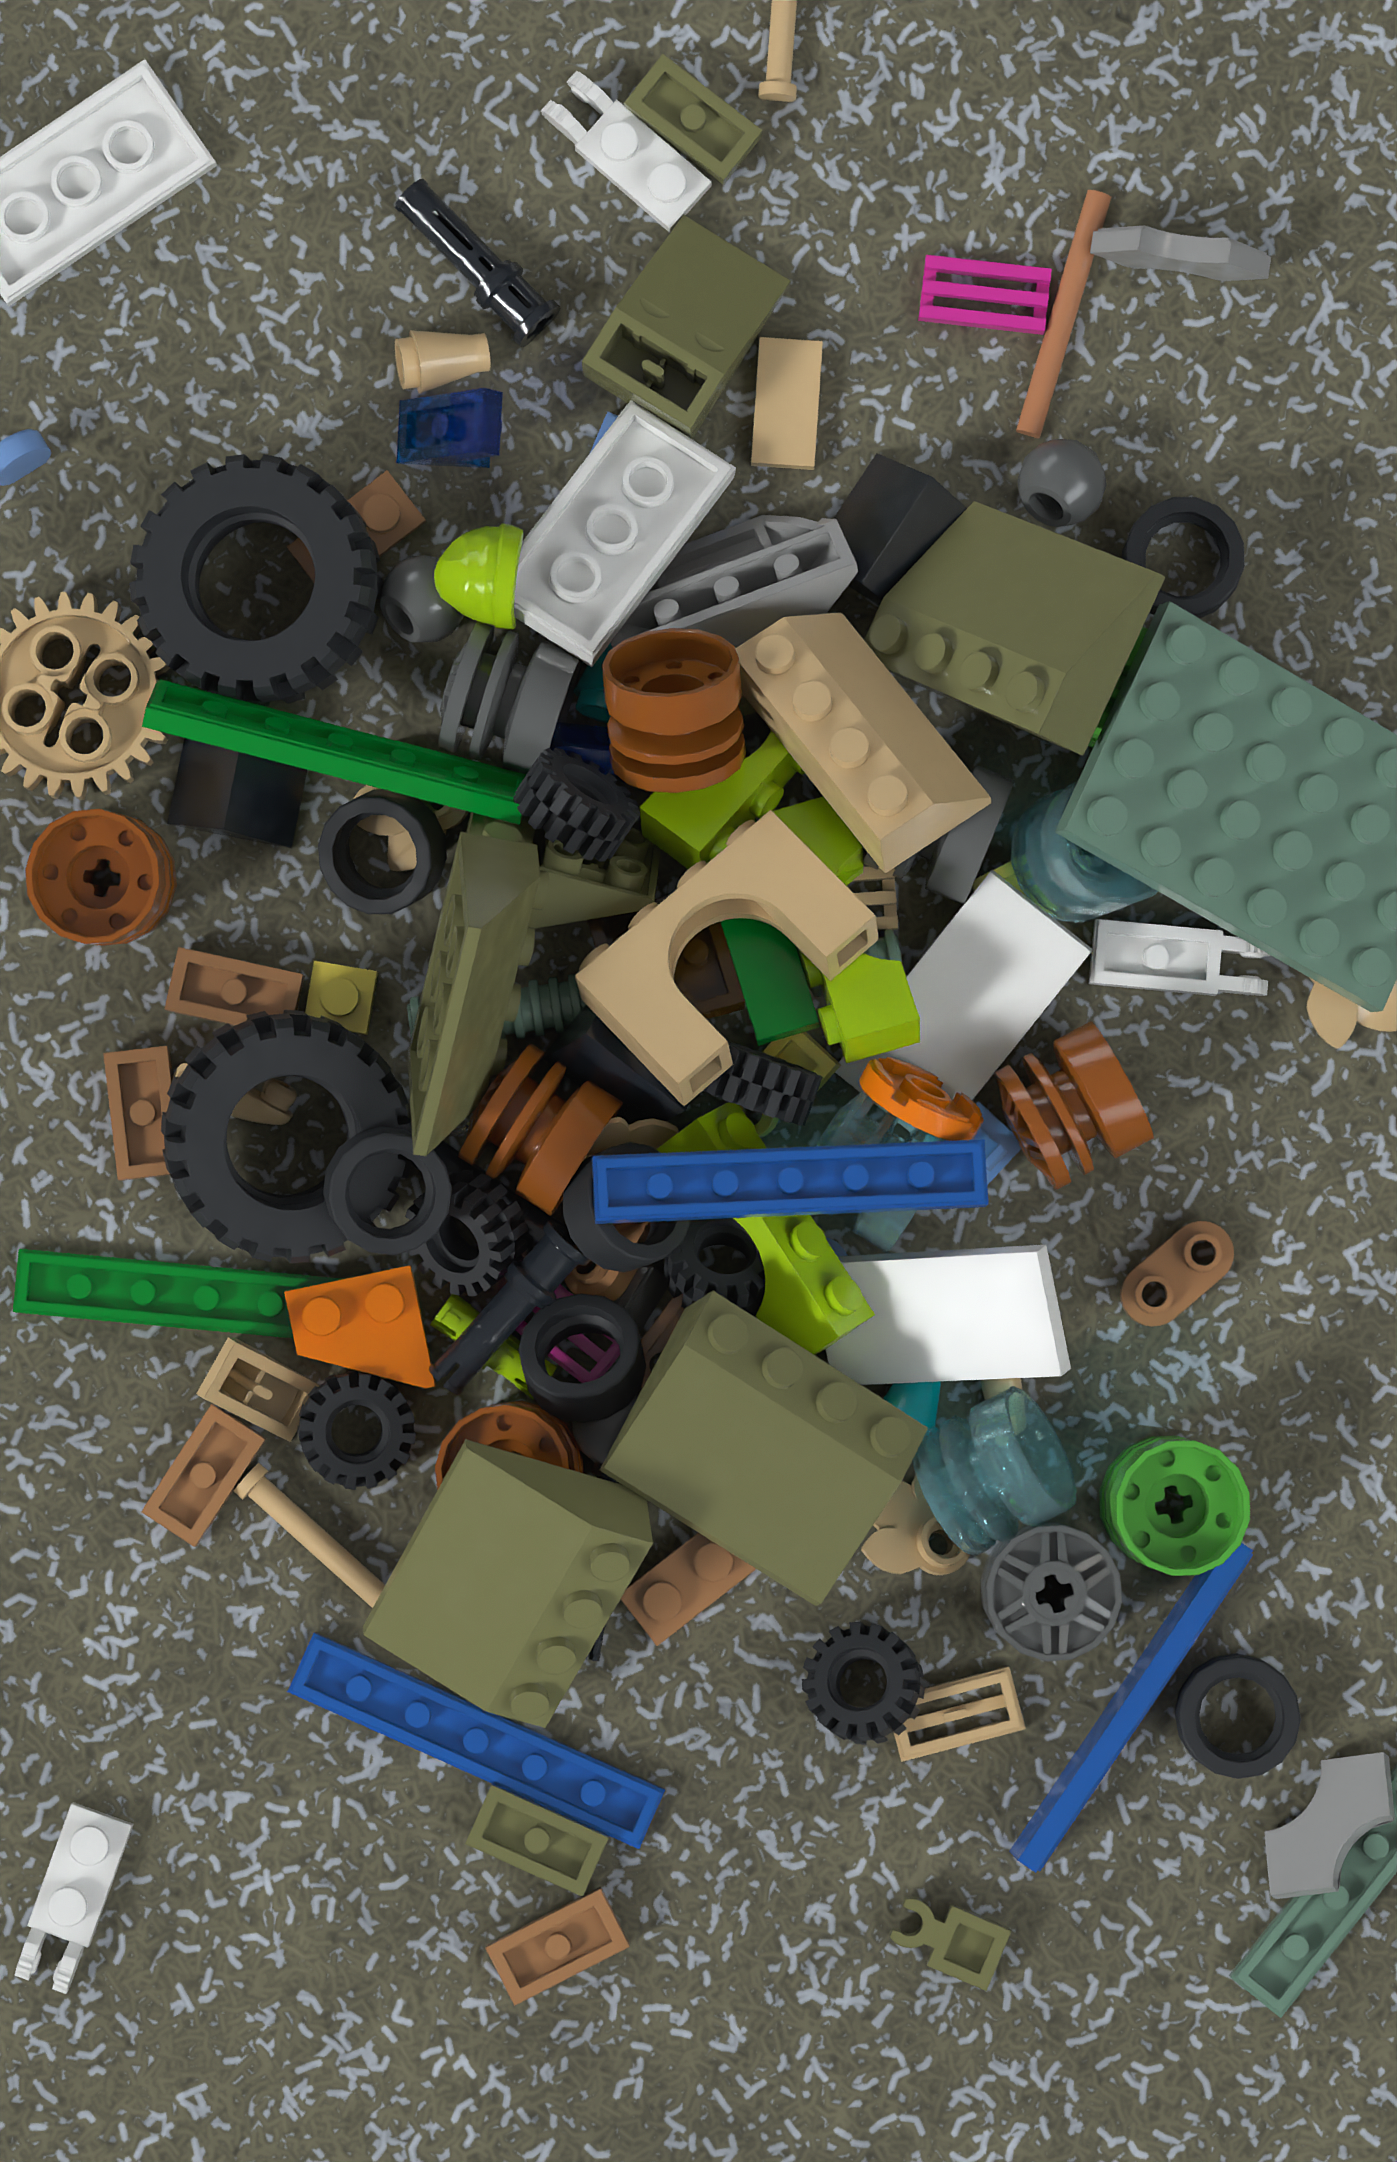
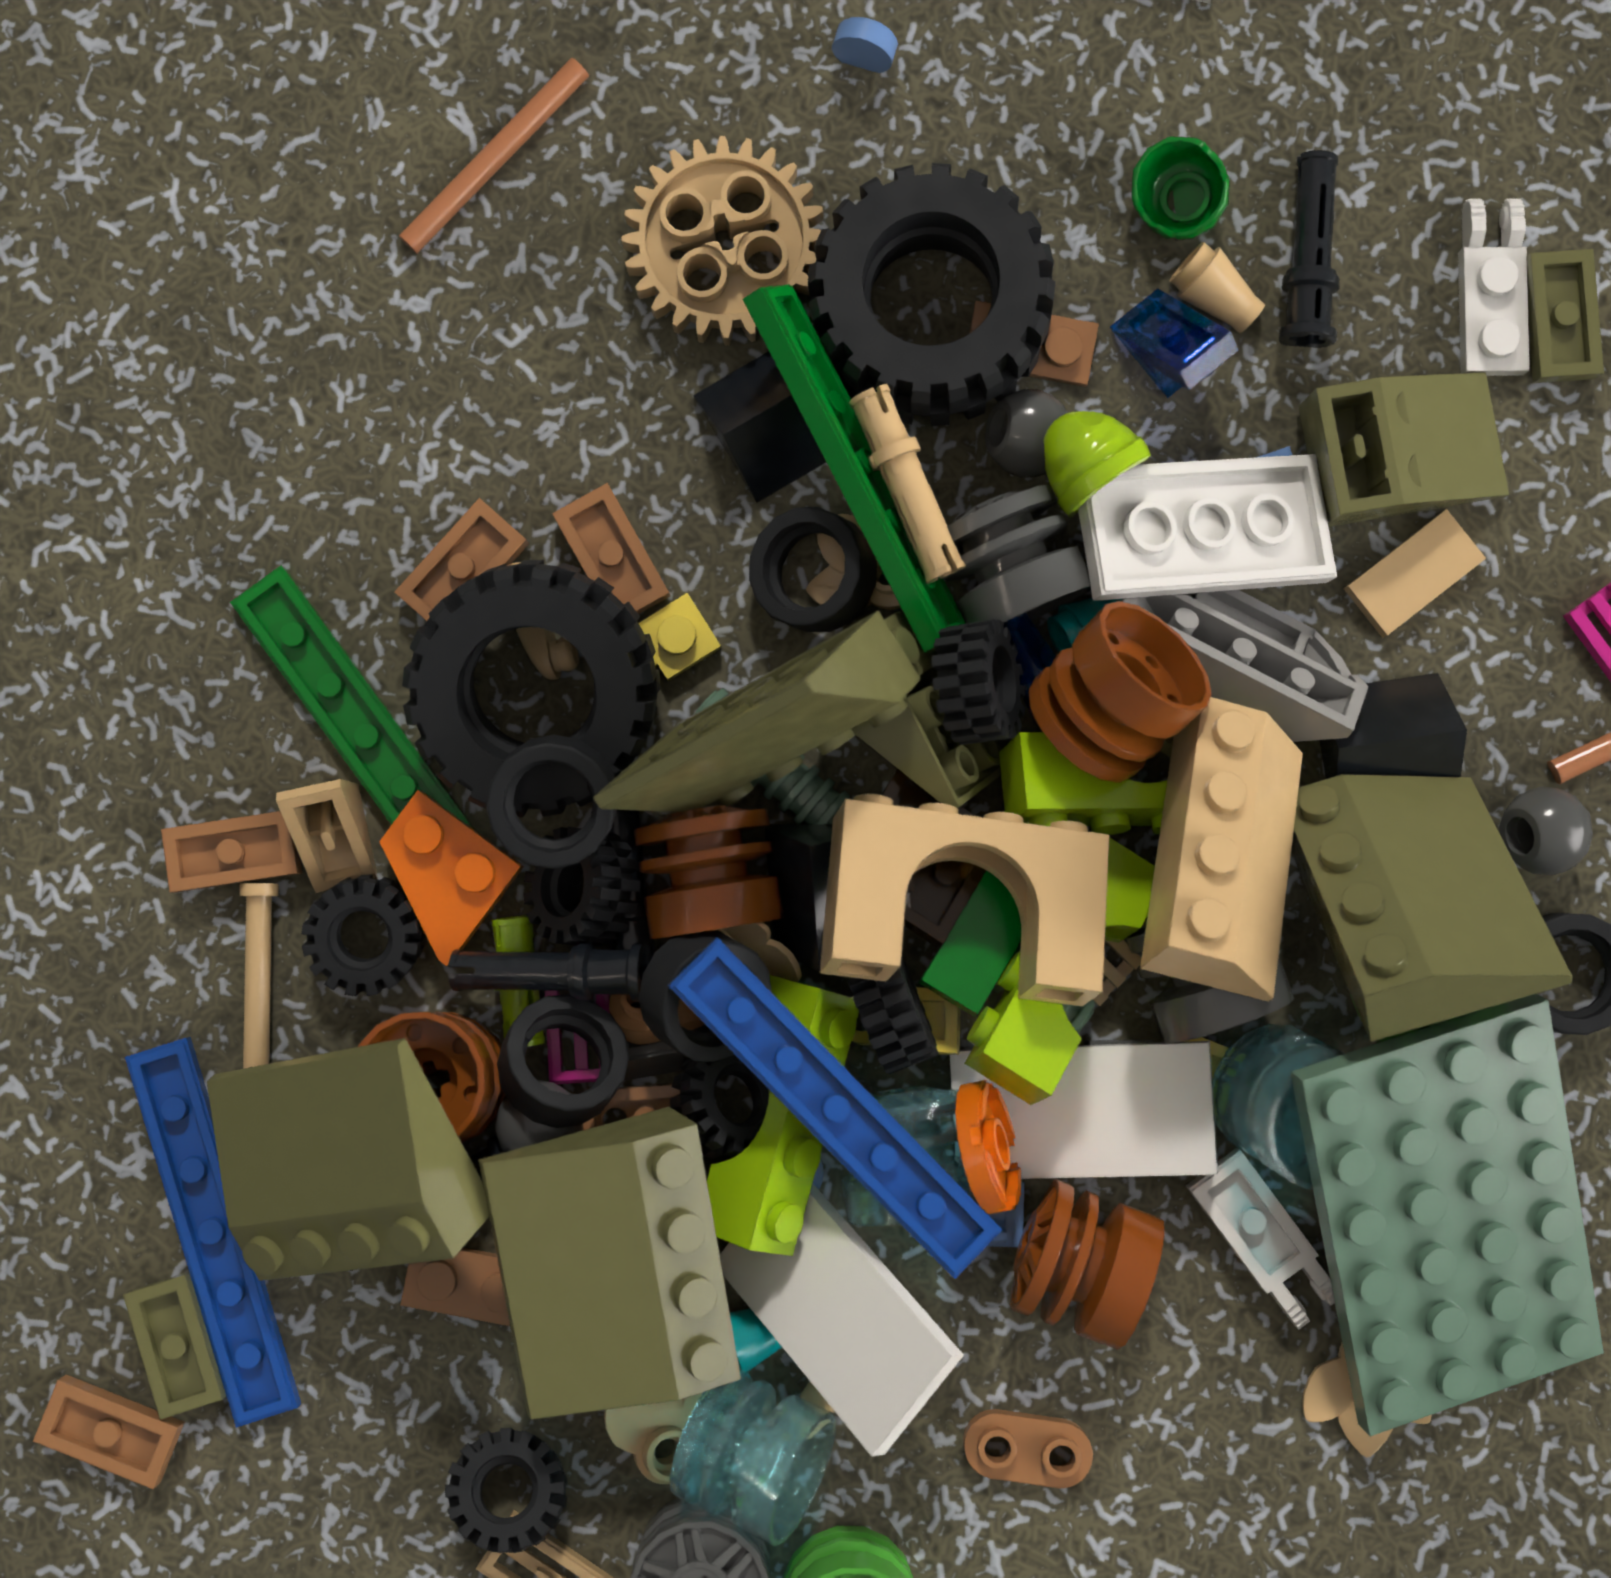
camera: 45 degrees right, 0 degrees up
(63, 869) = (584, 347): dark orange wheel -> none
(352, 304) = (1197, 184): none -> green hair
(383, 726) = (901, 470): none -> tan pin

